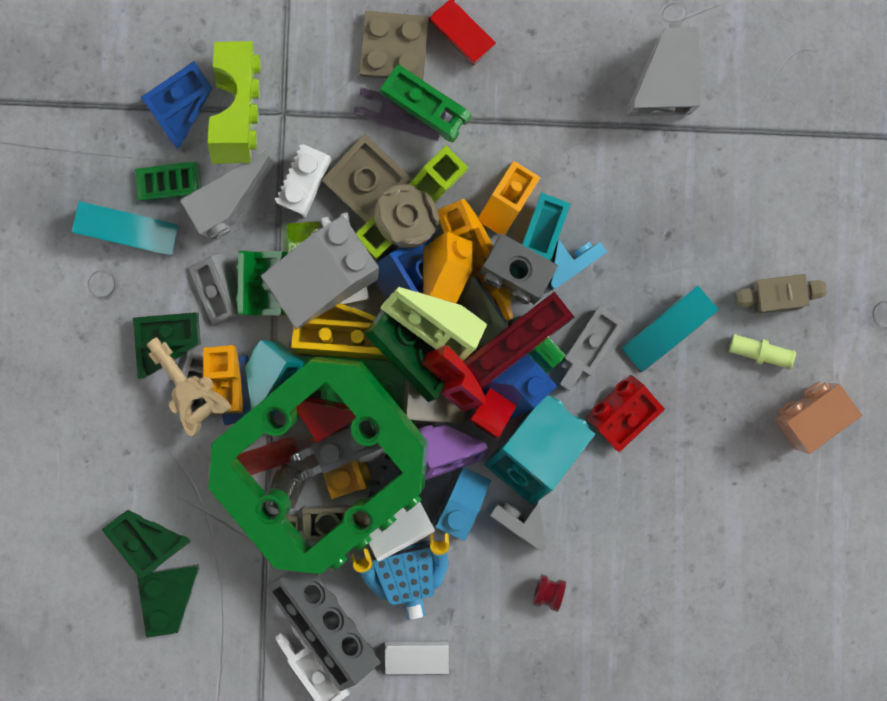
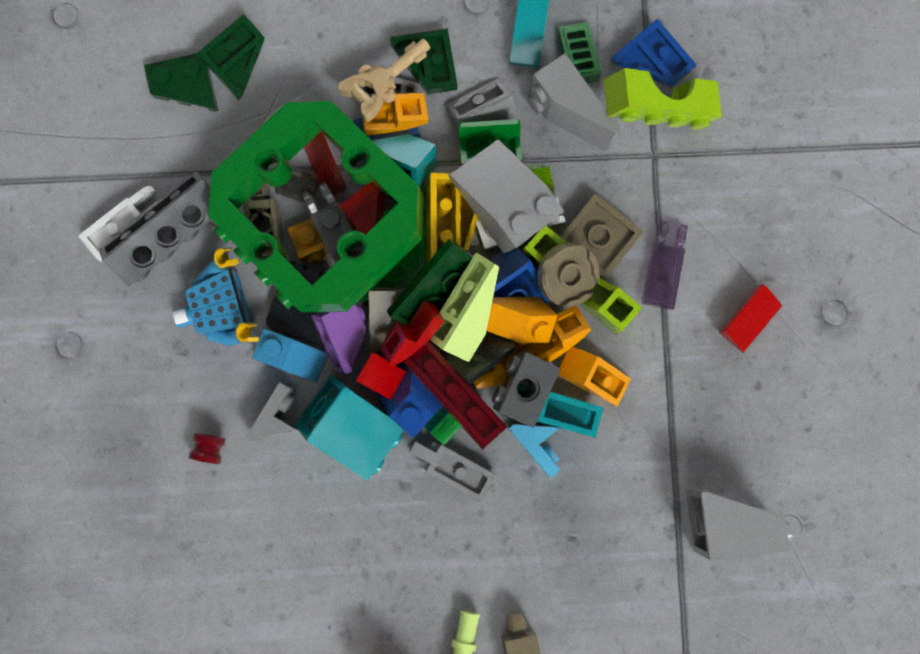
camera: 80 degrees right, 5 degrees down
(303, 180) = (593, 176): white brick -> none
(392, 41) = (730, 254): dark tan plate -> none
(406, 530) = (257, 296): white slope -> none
(417, 657) = (137, 323): white slope -> none
(425, 102) = (680, 285): green plate -> none
(625, 412) = (391, 510): red bracket -> none
(670, 328) = (480, 548): teal slope -> none

